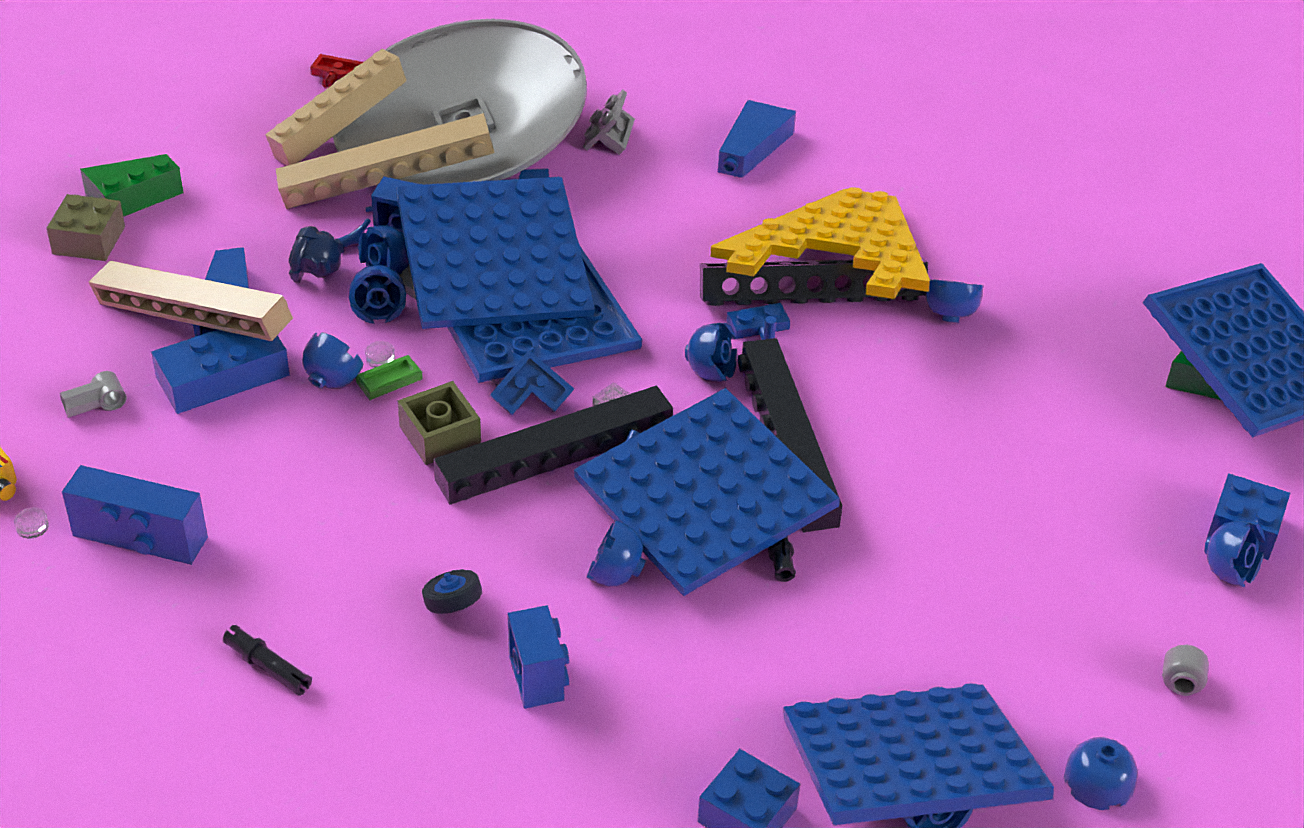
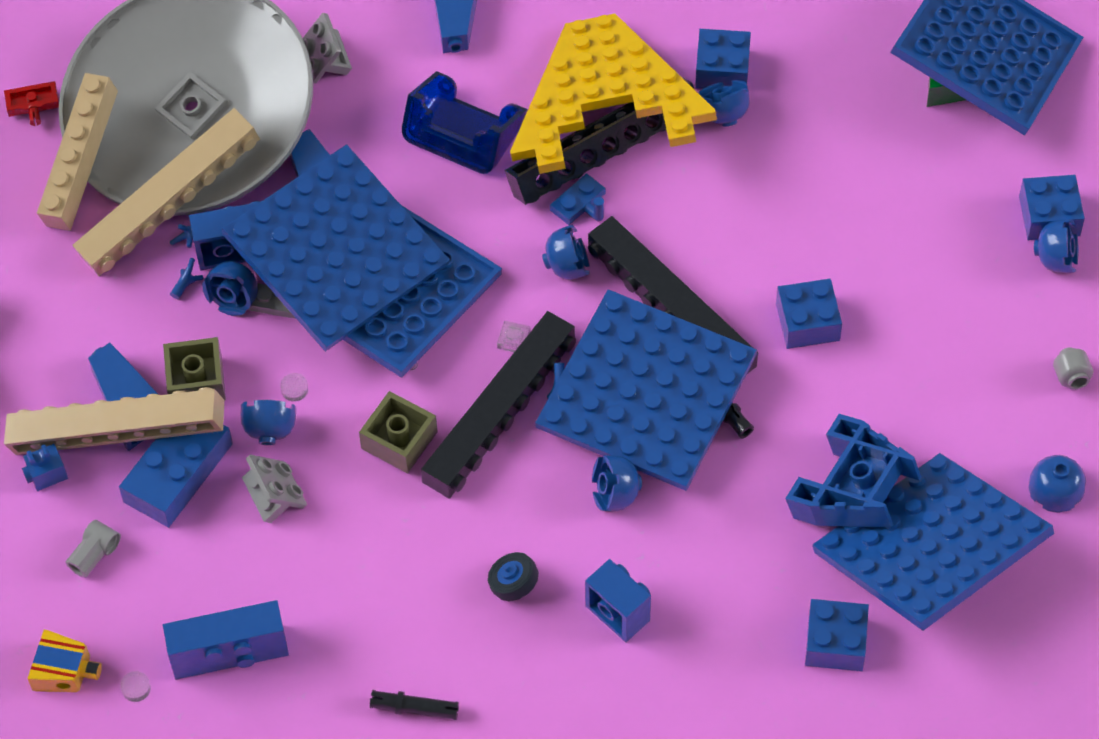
camera: 25 degrees left, 15 degrees up
(109, 316) = (44, 467): none -> blue brick
(291, 416) = (272, 487): none -> light grey bracket
(308, 295) = (194, 366): none -> olive brick
(315, 254) = (174, 316): dark blue helmet -> none
(377, 294) = (256, 331): blue cylinder -> none
(389, 377) = (318, 405): bright green tile -> none
(529, 377) = (441, 354): blue plate -> none
(674, 216) = (458, 129): none -> clear blue windscreen
(864, 661) = (857, 482): none -> blue wedge
(921, 499) = (808, 313): none -> blue brick
(978, 262) = (722, 57): none -> blue brick

